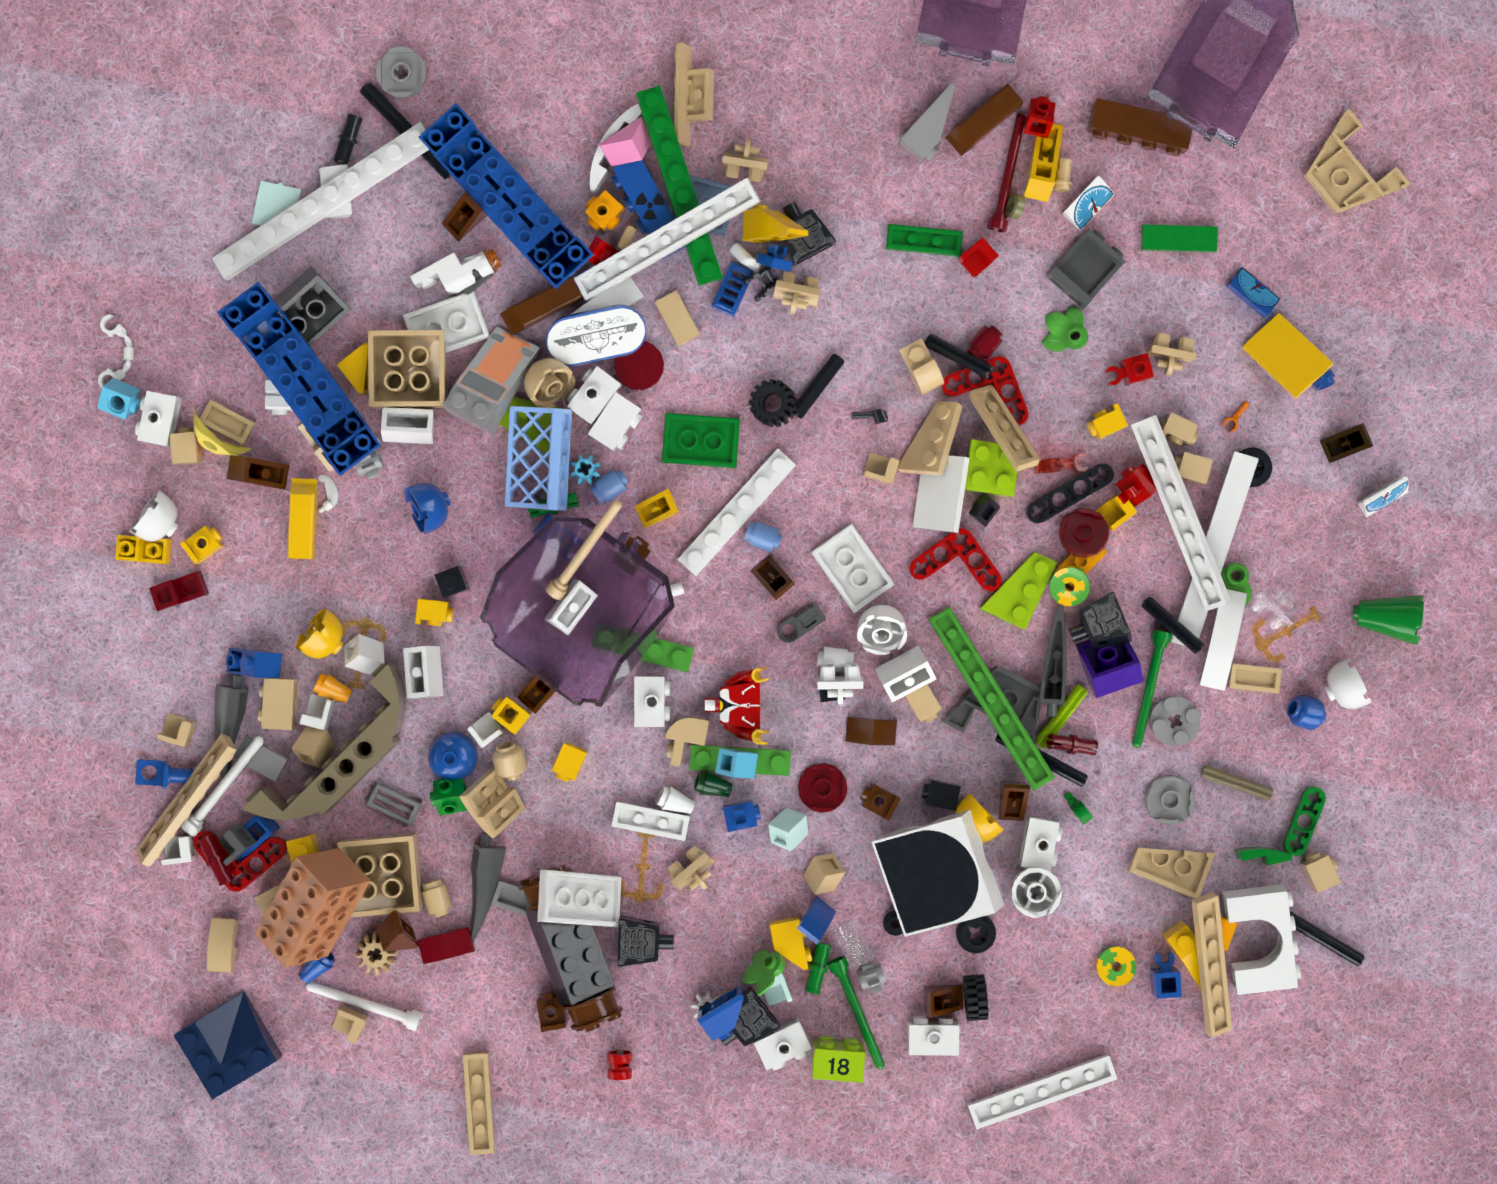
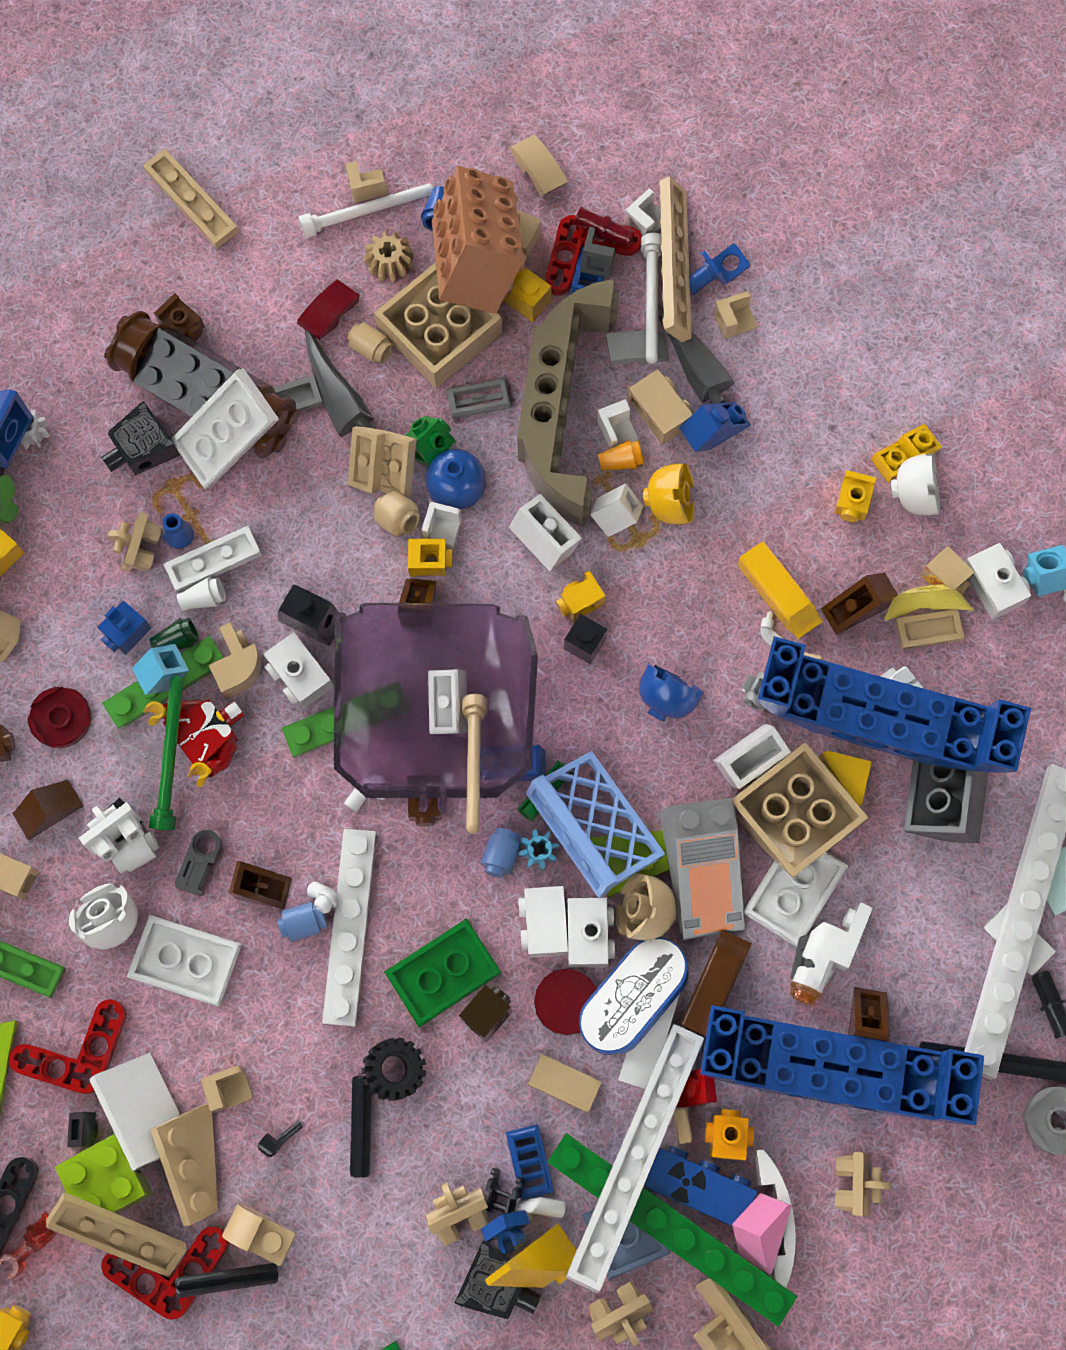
camera: 145 degrees right, 15 degrees down
(179, 590) = (840, 440): dark red slope -> none
(228, 1045) = (463, 86): dark blue slope -> none
(313, 746) = (595, 391): tan panel -> none
(396, 933) = (380, 282): reddish brown slope -> none
(556, 120) = (859, 1168): none -> tan hips
(569, 762) = (335, 555): yellow brick -> none
(616, 732) = (307, 614): none -> black torso
(619, 1065) = (76, 317): red wheel -> none
(657, 508) = (434, 867): yellow slope -> none
(660, 850) = (177, 531): none -> blue cone
(692, 392) = (486, 1012): none -> dark brown brick
(737, 540) = (324, 896): none -> white arm
(788, 829) = (65, 650): light aqua panel -> none
(802, 669) = (163, 816): none -> green piece
(905, 673) = (47, 890): white brick -> none
(985, 342) = (208, 1319): dark red brick -> none

